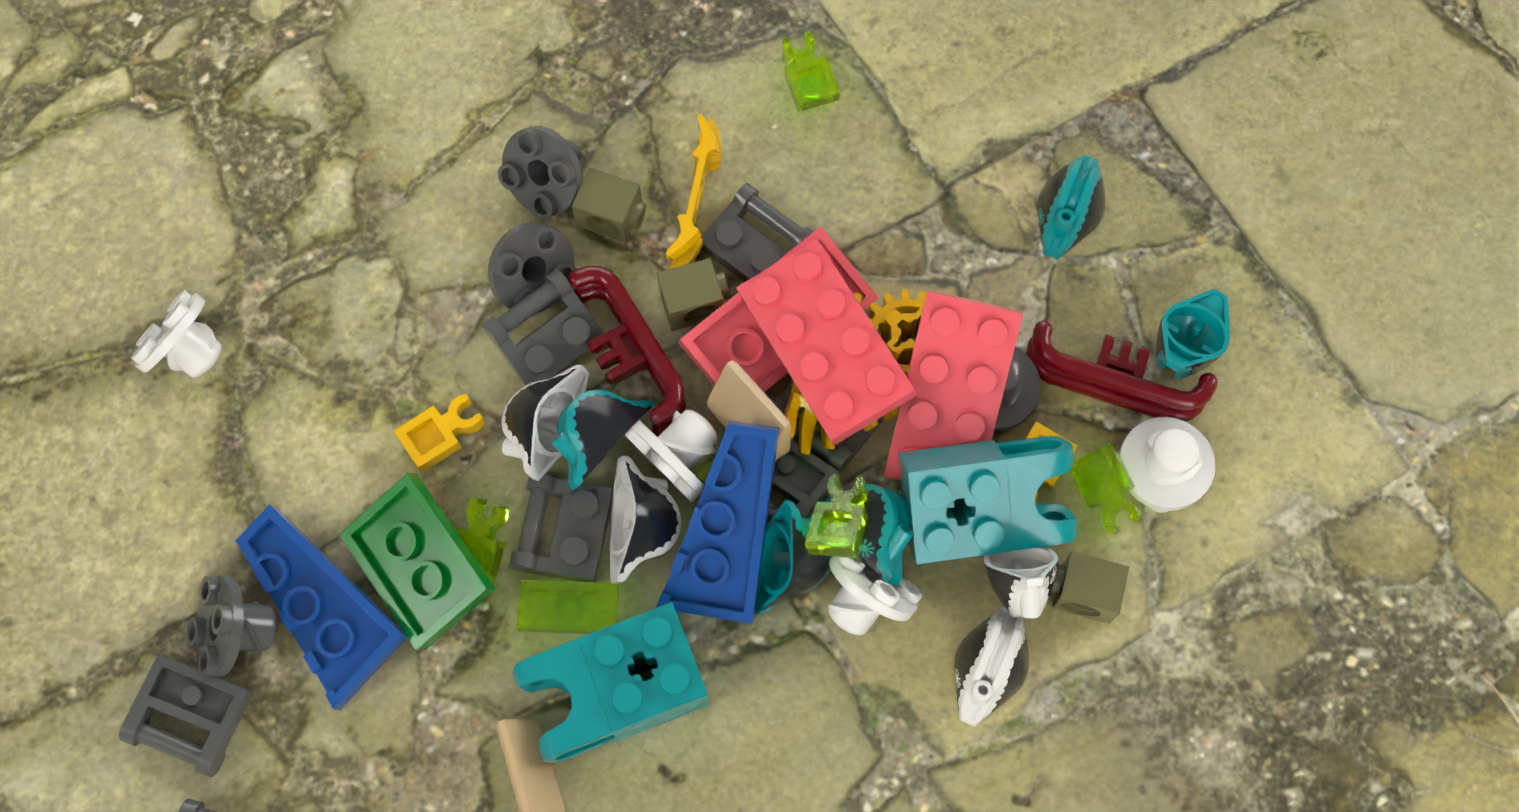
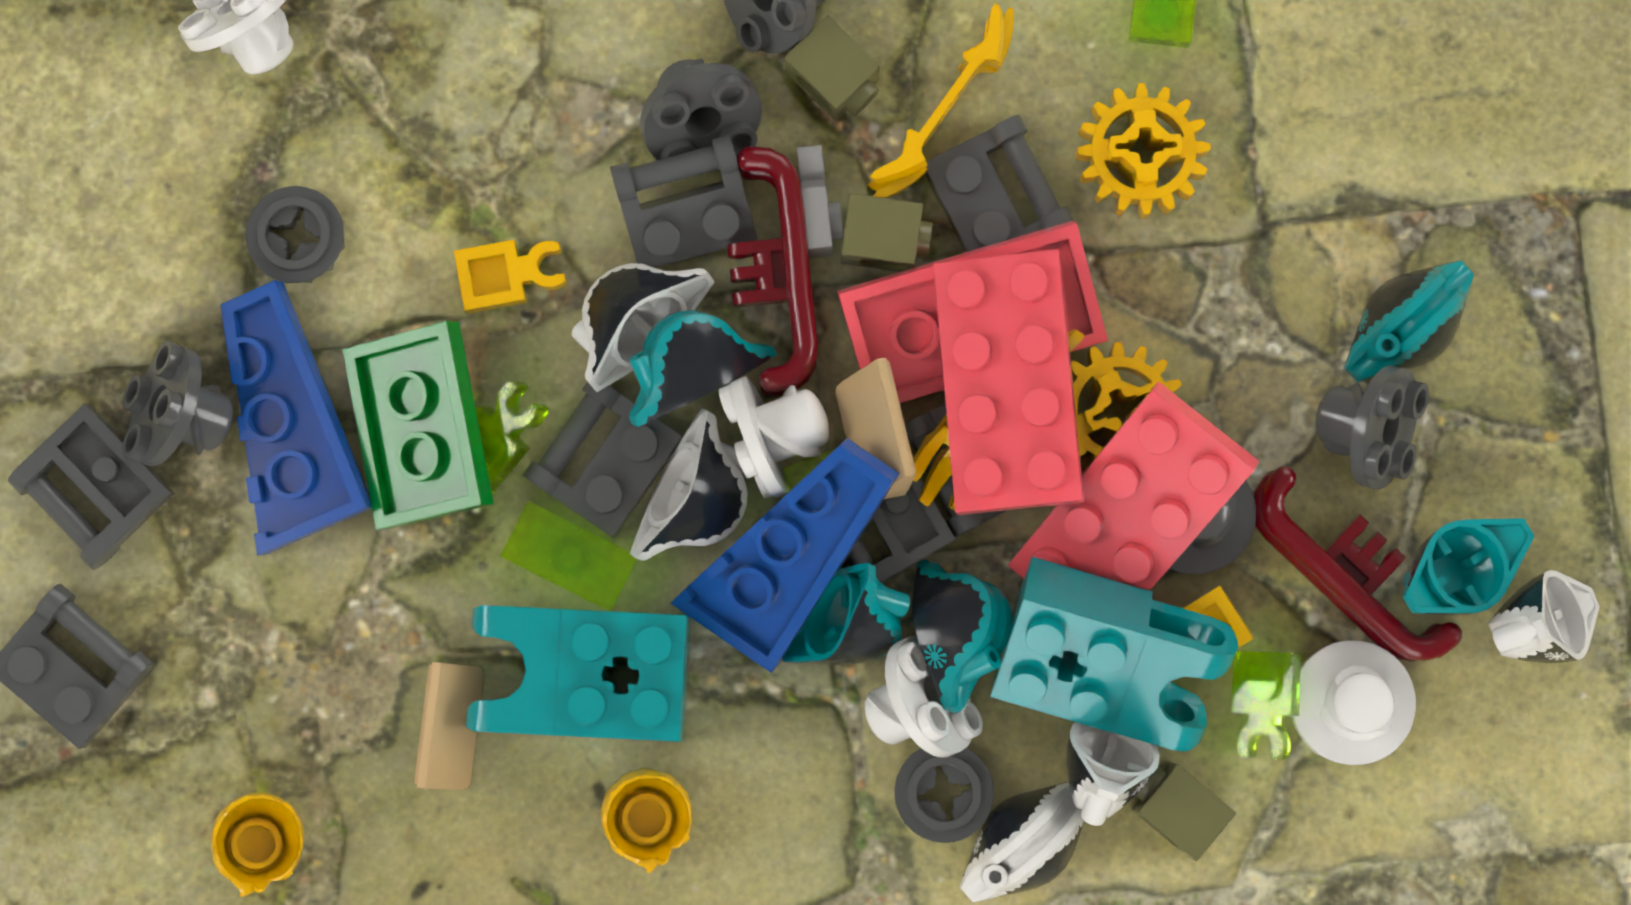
camera: 25 degrees right, 15 degrees up
(257, 460) = (282, 210): none -> dark grey gear
(646, 299) = (822, 217): none -> light grey plate
(708, 767) = (646, 817): none -> yellow hair
(838, 525) = (918, 618): clear neon green plate -> none
(839, 175) = (1142, 125): none -> yellow gear
(918, 631) = (927, 817): none -> dark grey gear
(1083, 273) = (1374, 425): none -> dark grey plate
(1264, 349) = (1546, 620): none -> white hat

